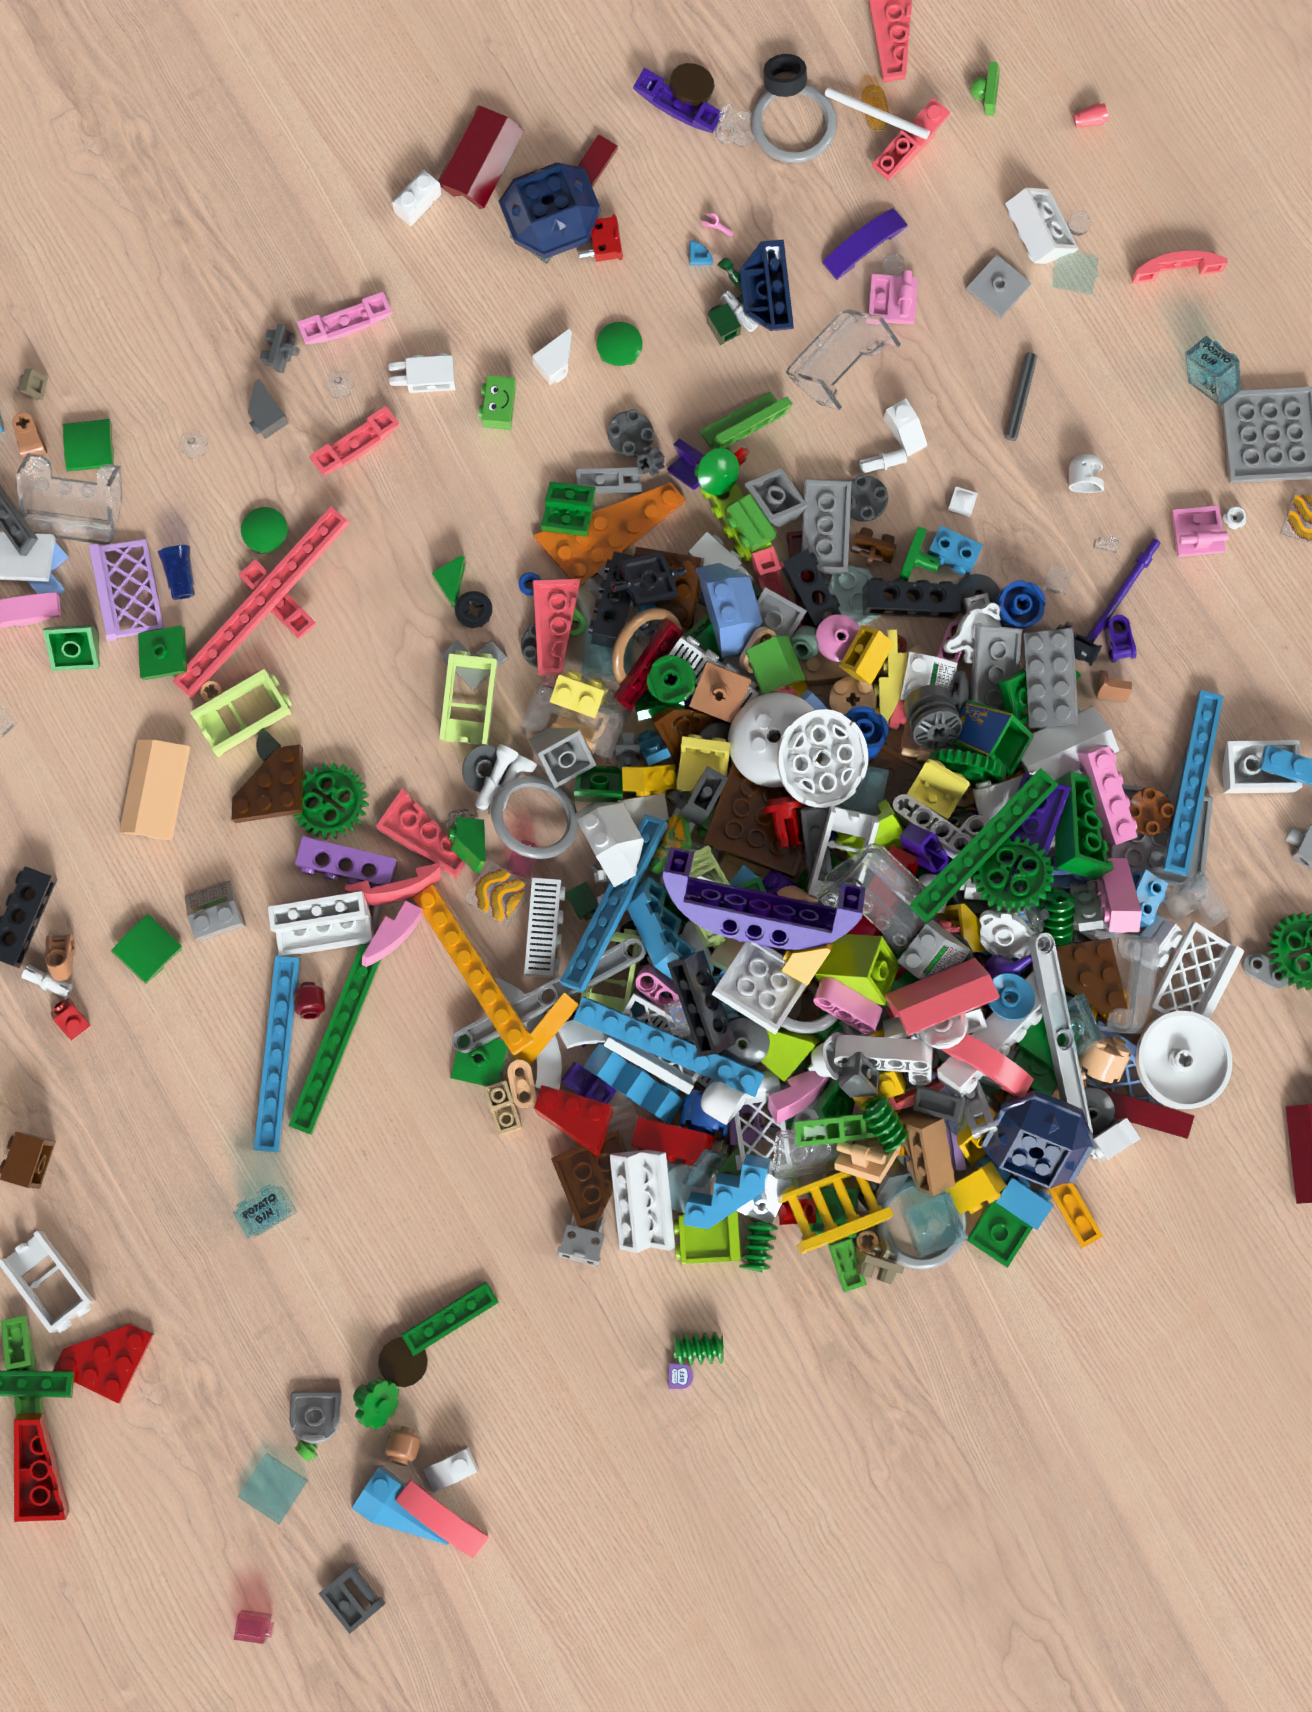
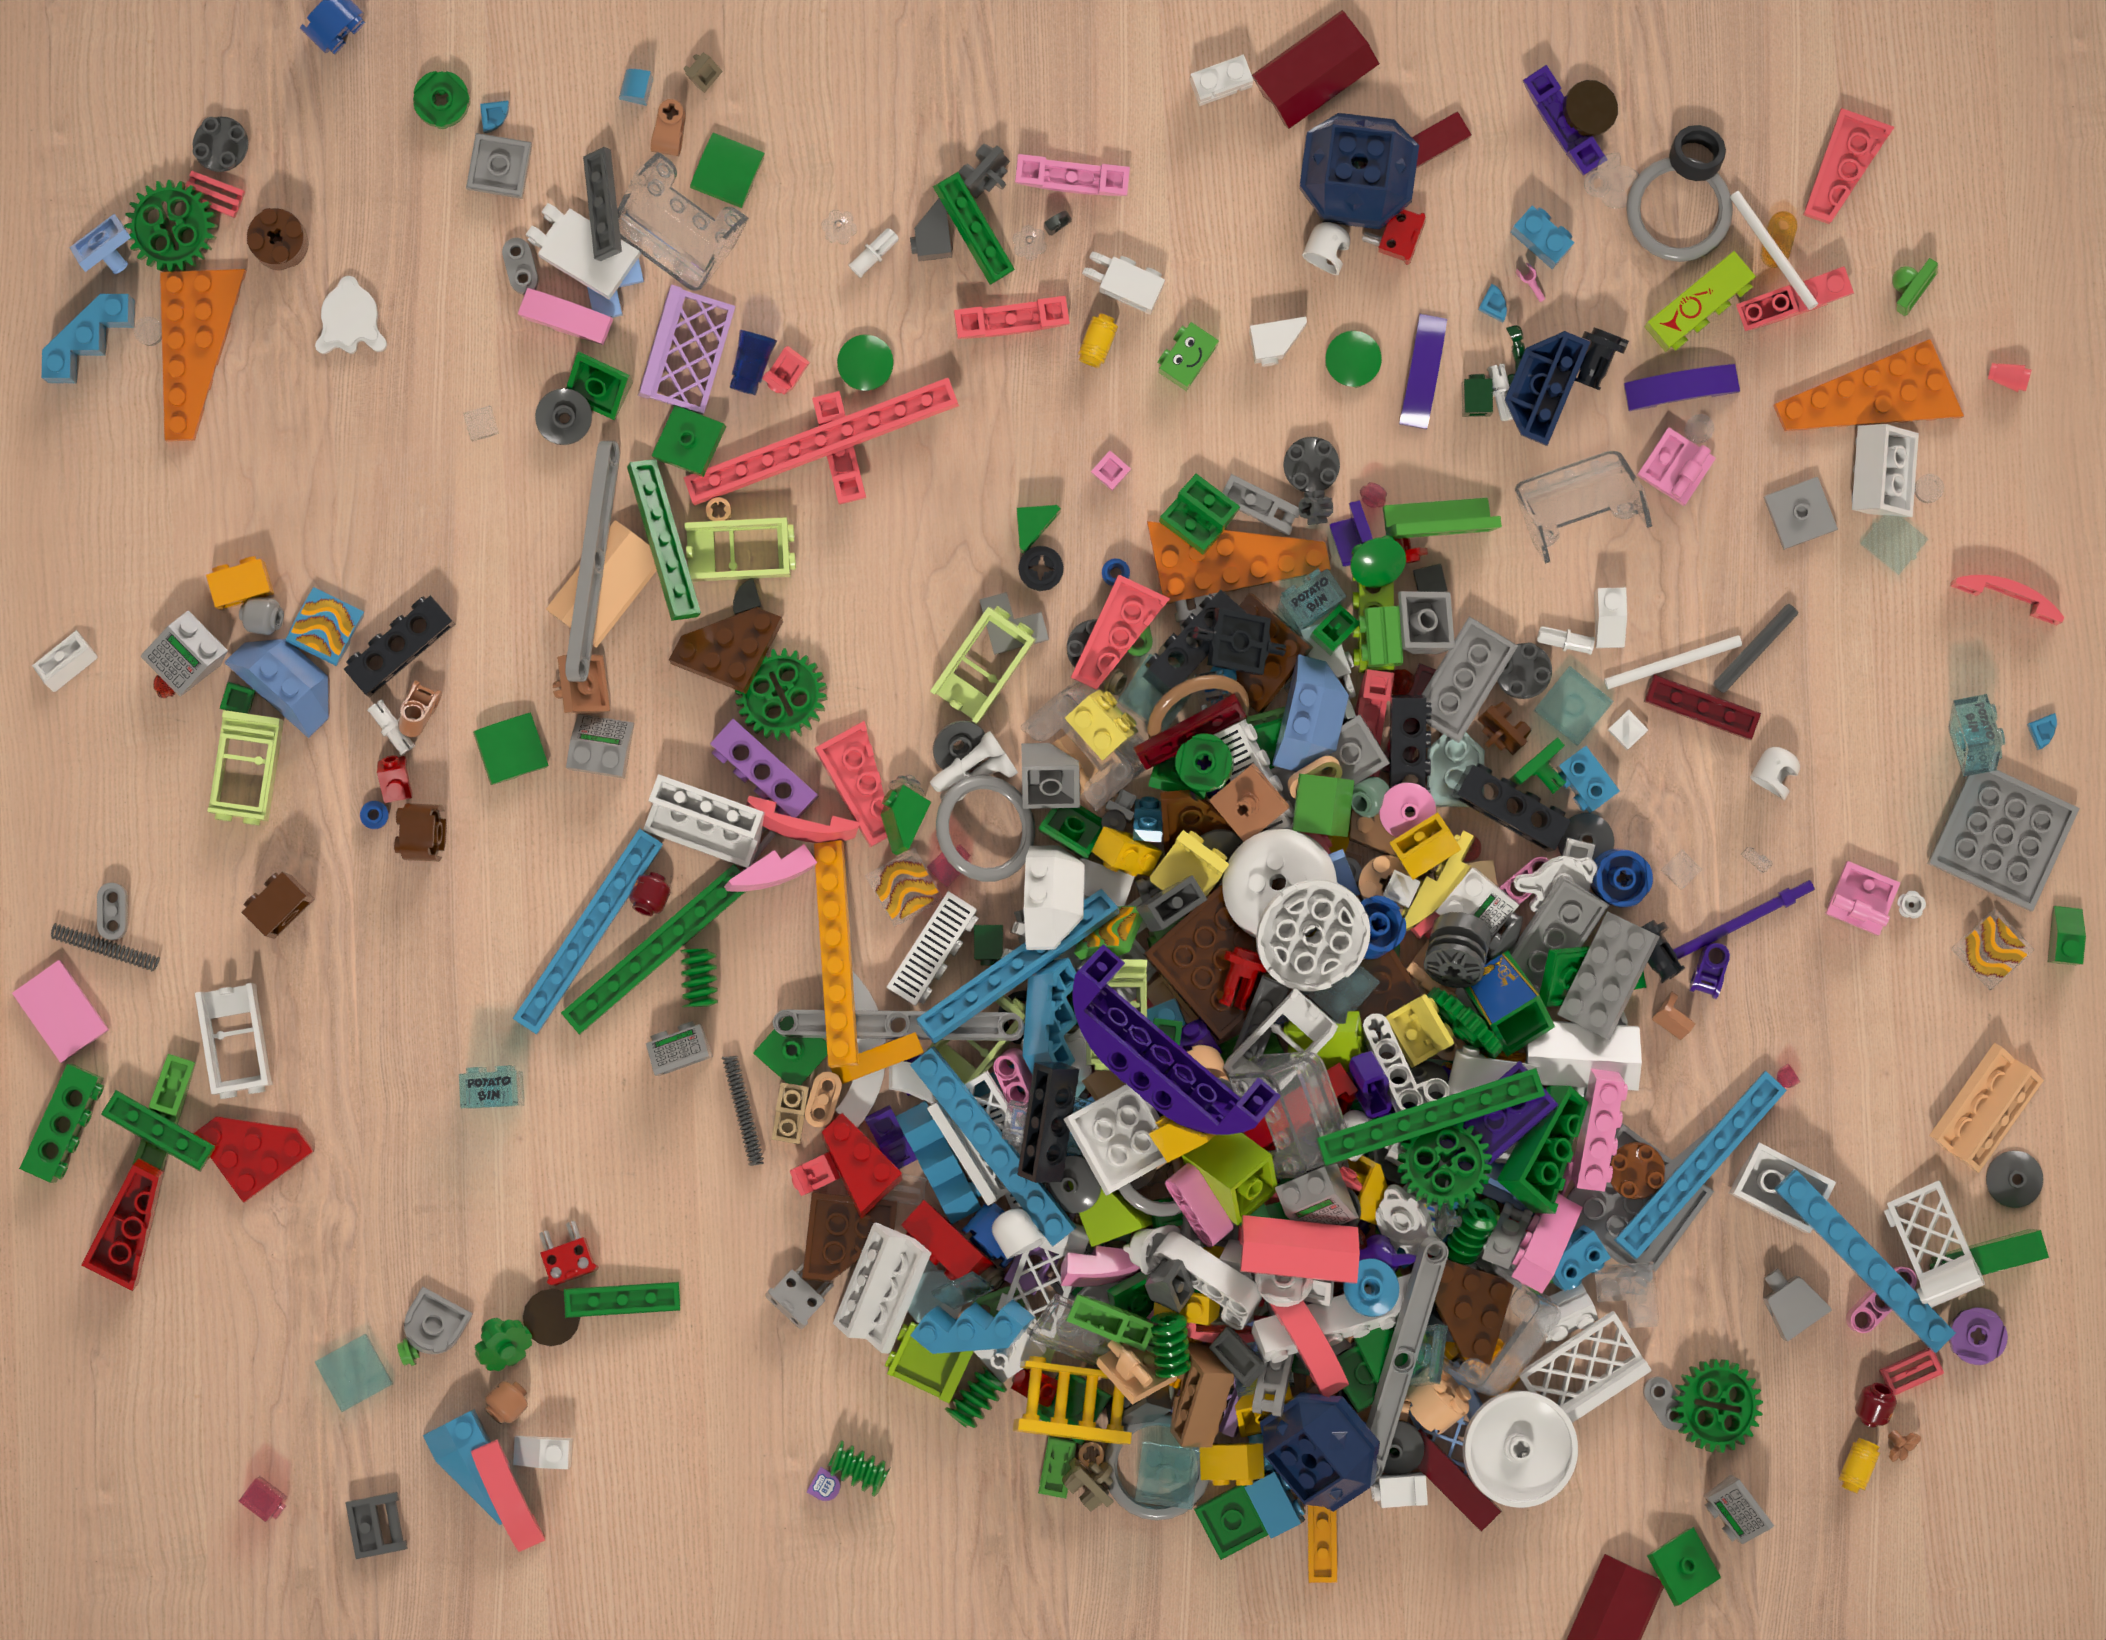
camera: 30 degrees right, 5 degrees up
(53, 674) = (558, 403): none -> dark grey dish
(75, 1053) = (380, 821): none -> blue plate
(109, 1046) = (420, 832): none -> reddish brown brick
(135, 776) = (592, 561): none -> light grey beam
(175, 871) = (584, 696): none -> nougat tile
(180, 732) = (663, 539): none -> plate
(208, 565) = (786, 371): none -> coral bracket
(228, 448) = (873, 252): none -> white axle
(292, 391) = (973, 228): none -> green tile
(351, 358) = (1057, 222): none -> pearl dark grey tile
(379, 1042) = (699, 977): none -> green piece
(392, 1104) = (678, 1049): none -> light grey slope
(394, 1313) = (568, 1263): none -> red piece
(426, 425) = (1097, 340): none -> yellow head
(466, 1128) = (742, 1111): none -> dark grey piece
(486, 512) = (1110, 470): none -> bright pink plate
(545, 1143) = (814, 1174): none -> coral bracket
(553, 269) = (1323, 245): none -> white helmet
(572, 661) = (1115, 682): none -> dark tan plate
(675, 327) = (1423, 371): none -> dark purple slope
(684, 526) = (1311, 600): none -> clear light blue brick
(687, 431) = (1373, 495): none -> clear pink plate
(707, 188) = (1542, 236): none -> dark azure brick
(712, 538) = (1334, 629): none -> green slope
(760, 467) = (1430, 579): none -> pearl dark grey tile
(783, 551) = (1402, 682): none -> clear red plate
(795, 249) = (1599, 356): none -> black piece
(844, 177) = (1700, 301): none -> lime brick
(866, 695) = (1401, 888): none -> white tile
(914, 504) = (1573, 705): none -> clear light blue tile
(967, 437) = (1673, 662): none -> white piece
(1006, 458) = (1702, 707): none -> dark red tile
(1017, 164) = (1891, 390): none -> orange wing
(1218, 686) = (1787, 1076): none -> clear pink hinge
(1255, 348) = (2043, 730): none -> dark azure tile

